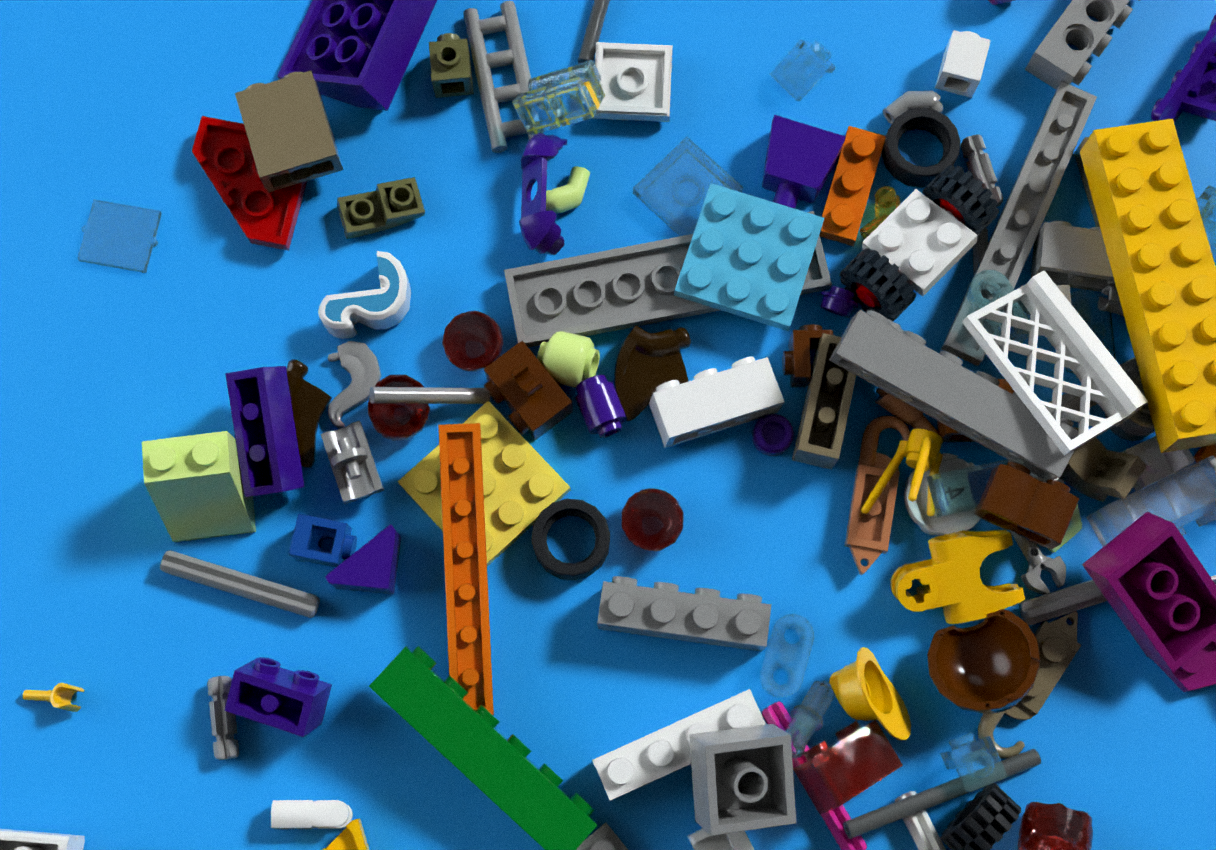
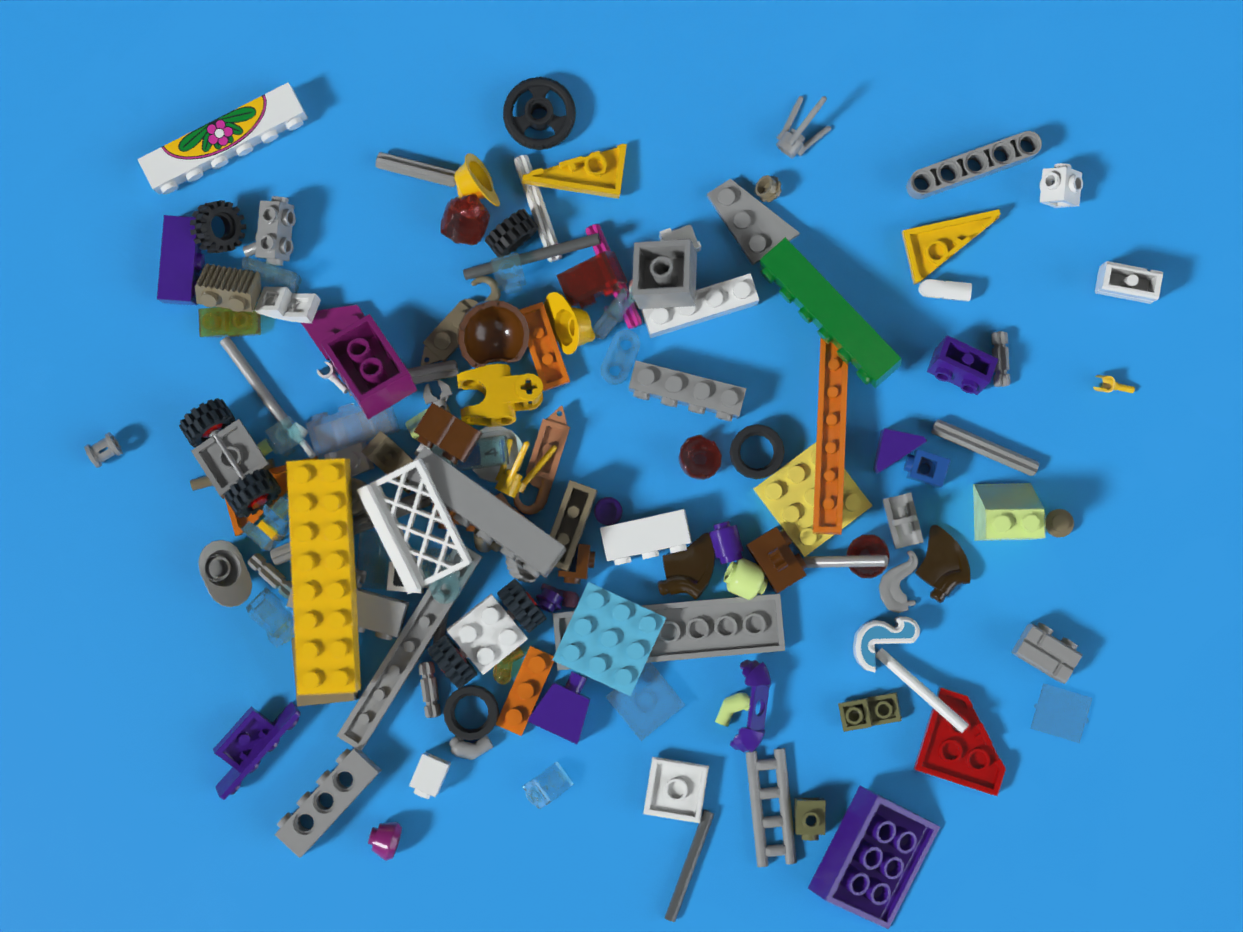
camera: 170 degrees left, 10 degrees up
(127, 487) = (1059, 523): none -> dark tan plate
(139, 306) = (1046, 652): none -> light grey brick
(264, 430) = (961, 546): dark purple brick -> none
(288, 131) = (933, 772): dark tan brick -> none
(310, 237) = (925, 693): none -> white bar
(472, 341) = (811, 599): clear red hair -> none
(560, 98) = (731, 775): clear light blue hips -> none
(809, 312) = (570, 598): none -> hand
(902, 658) = (544, 348): none -> orange plate

